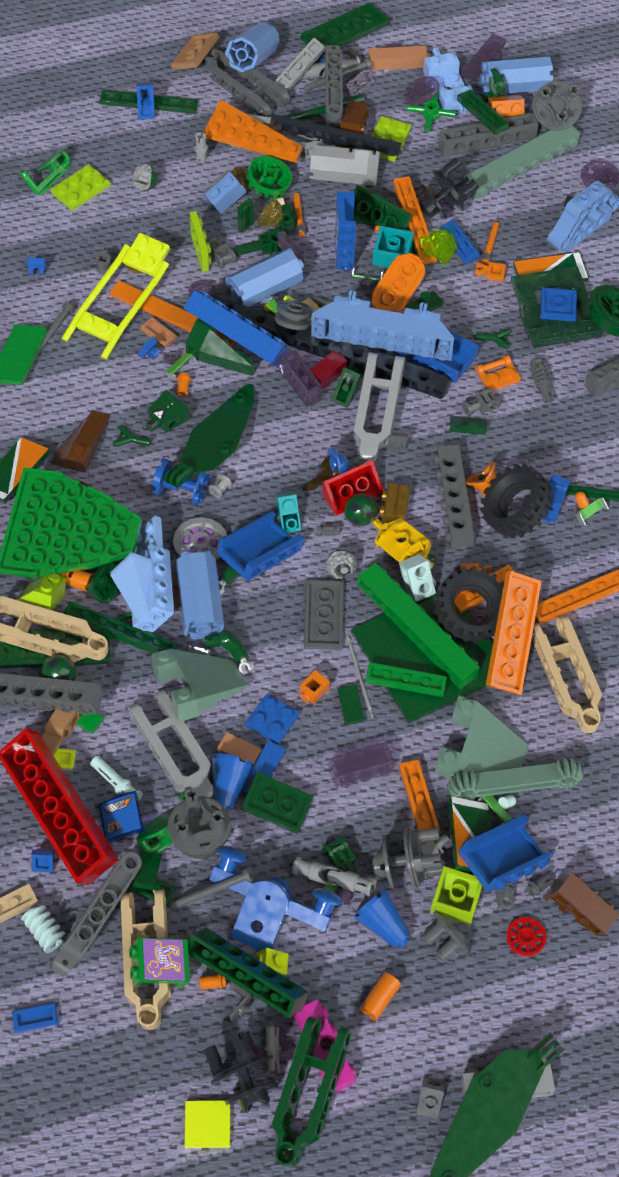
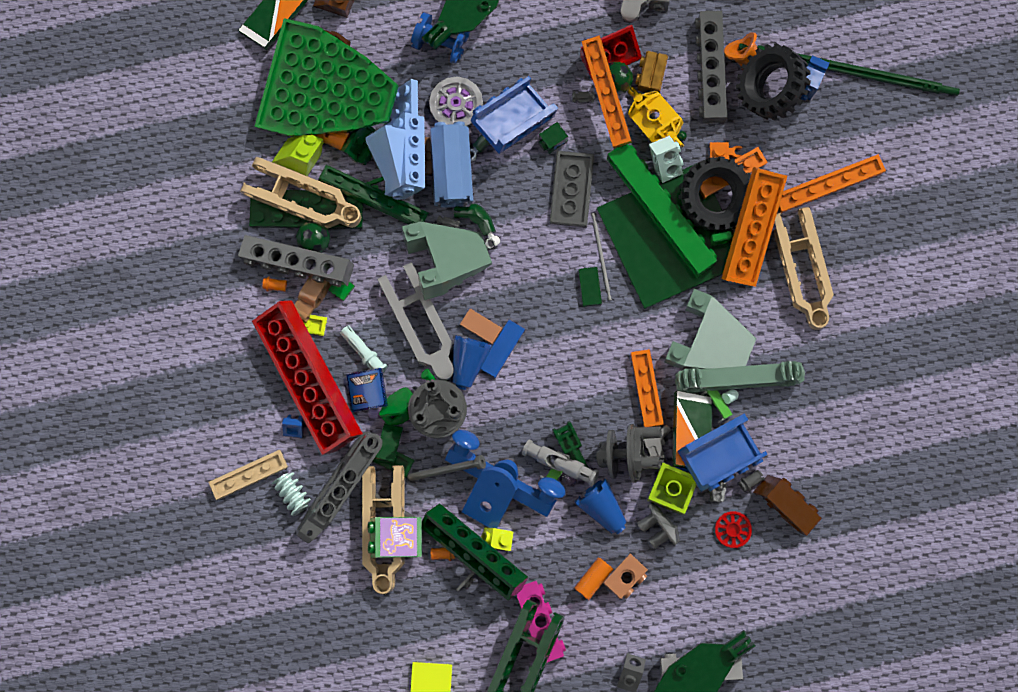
camera: 10 degrees right, 20 degrees up
(18, 721) = (274, 284): none -> orange pin
(35, 1017) = (282, 575): blue tile -> none
(220, 486) = (478, 42): light grey bush -> none
(247, 1059) = (469, 635): black piece -> none
(272, 719) = (514, 296): blue plate -> none
(272, 1048) = (493, 621): light grey pin -> none
(277, 803) = (512, 384): dark green plate -> none
(288, 511) = (544, 74): teal slope -> none
(301, 567) = (552, 138): none -> dark green brick
(314, 681) = (559, 262): orange brick -> none
(331, 466) = (591, 26): piece -> none
(340, 562) = (591, 135): light grey piece -> none
(352, 518) = (606, 91): none -> orange plate
(361, 765) = (595, 351): clear purple brick -> none
(406, 679) = (645, 266): green plate -> none
(417, 980) = (615, 583): none -> nougat brick
(480, 648) = (720, 238): none -> green tile
(588, 508) = (844, 86): piece -> none

